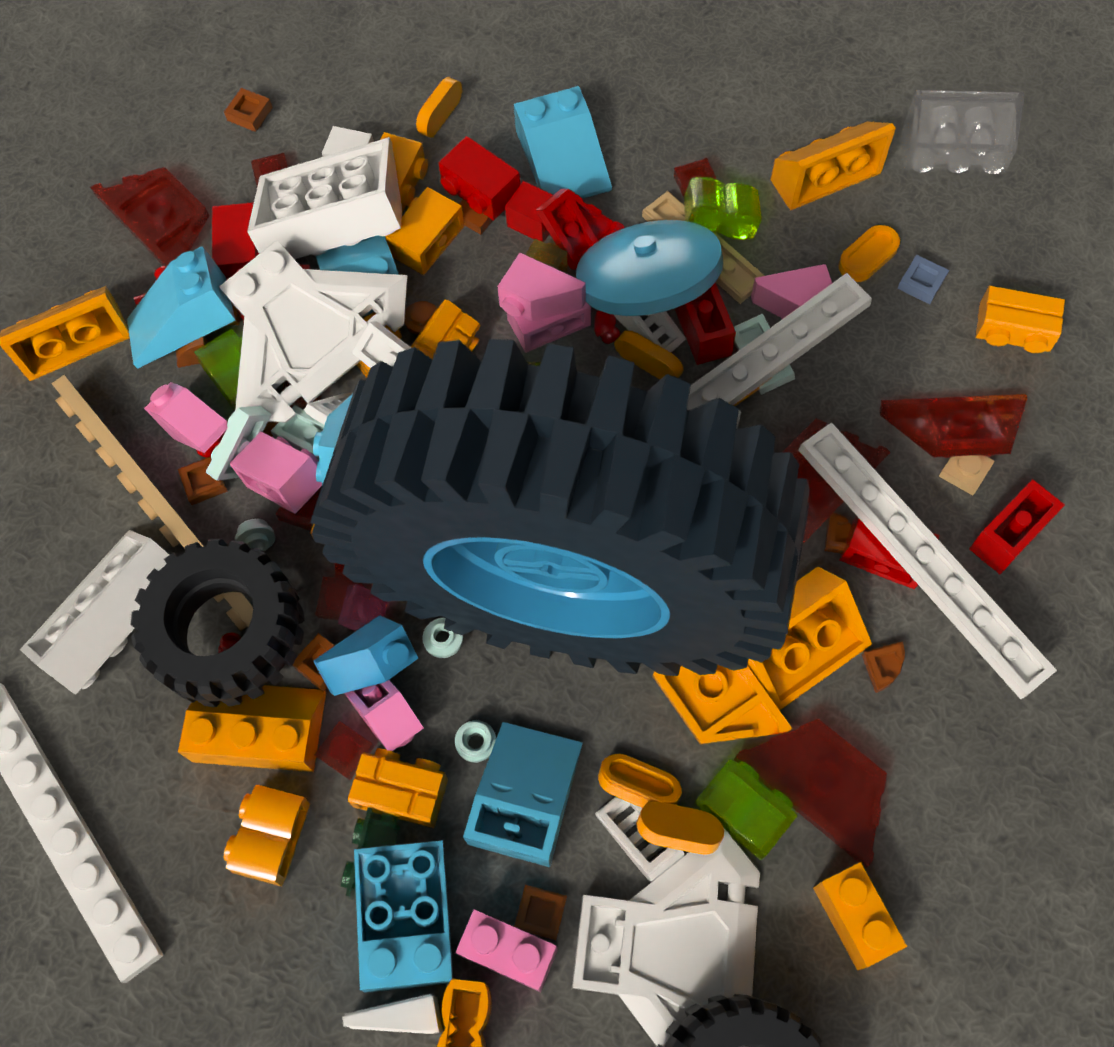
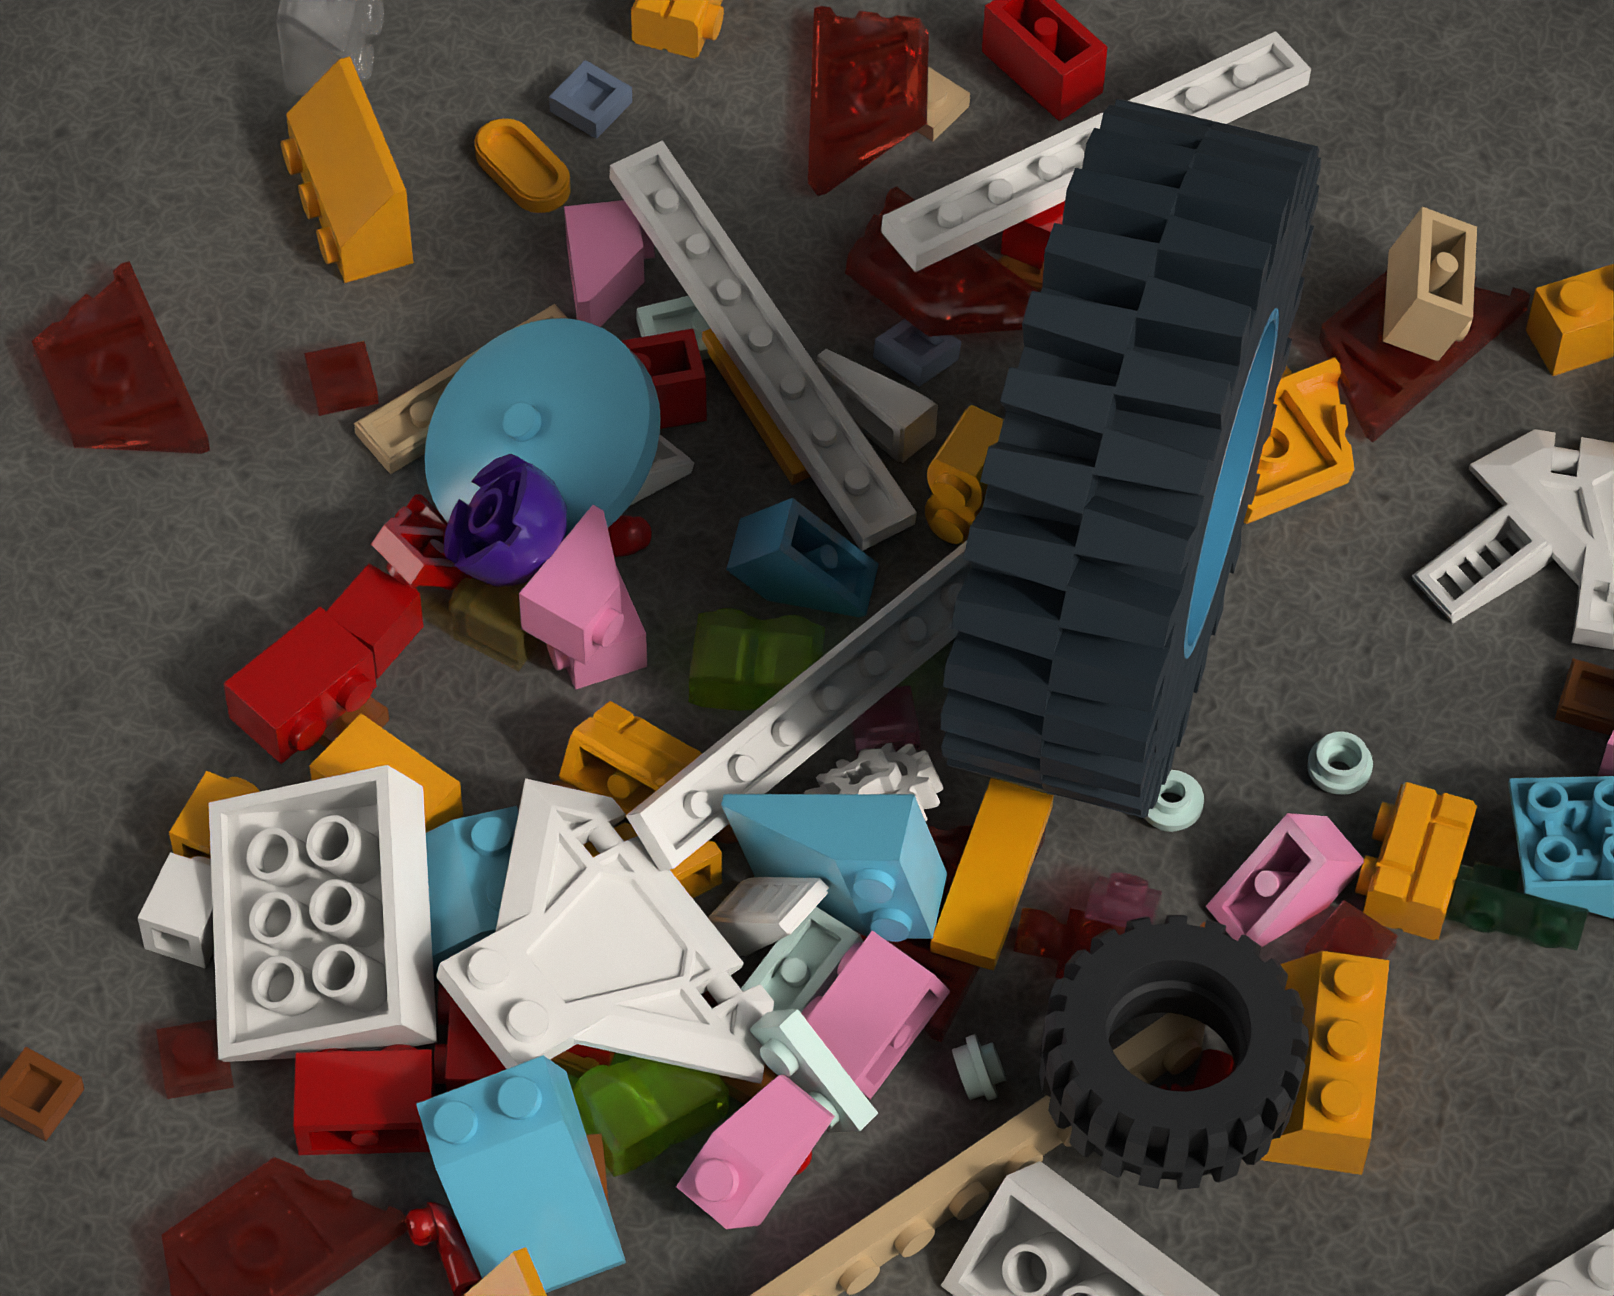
camera: 90 degrees left, 10 degrees down
(198, 484) = (854, 1166): dark orange tile -> none
(267, 835) = (1488, 1042): light orange brick -> none
(366, 657) = (1210, 873): dark azure slope -> none
(439, 106) = (102, 758): light orange tile -> none
(523, 794) = (1430, 691): medium azure slope -> none
(562, 143) = (234, 568): medium azure slope -> none
(569, 246) = (508, 524): none -> dark purple cylinder
(637, 781) = (1410, 555): light orange tile -> none
(648, 355) = (692, 475): light orange tile -> none
(680, 828) = (1482, 498): light orange tile -> none
(686, 80) = (118, 375): none -> clear red wing
(723, 208) = (421, 338): clear neon green brick -> none
(747, 808) = (1448, 427): clear neon green brick -> none
(846, 783) = (1430, 284): none -> tan brick

